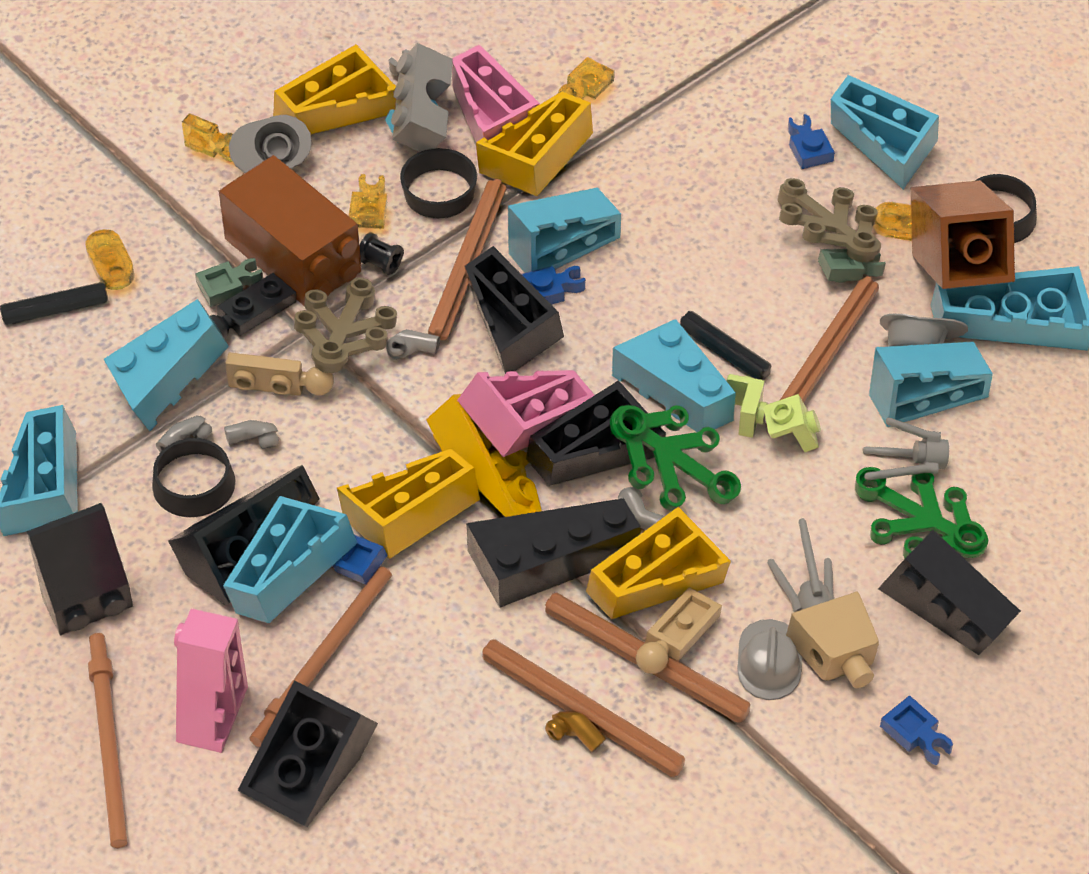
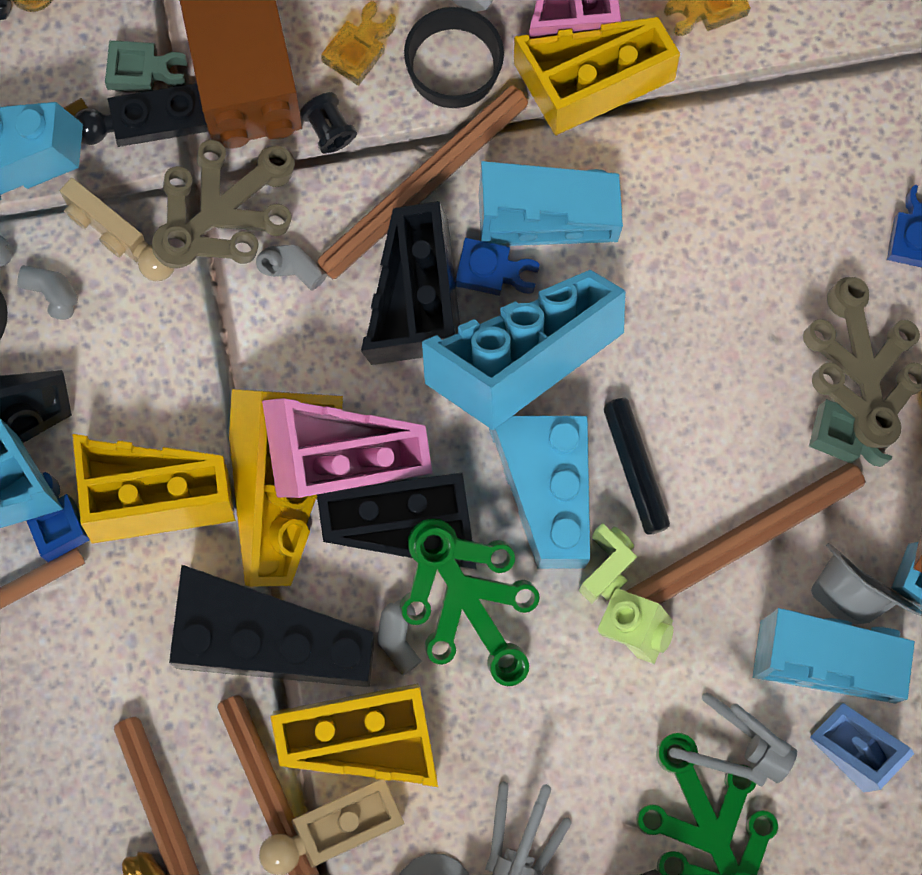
camera: 25 degrees right, 25 degrees up
(606, 301) = (527, 349): none -> medium azure wedge
(985, 422) = (861, 748): none -> light blue slope

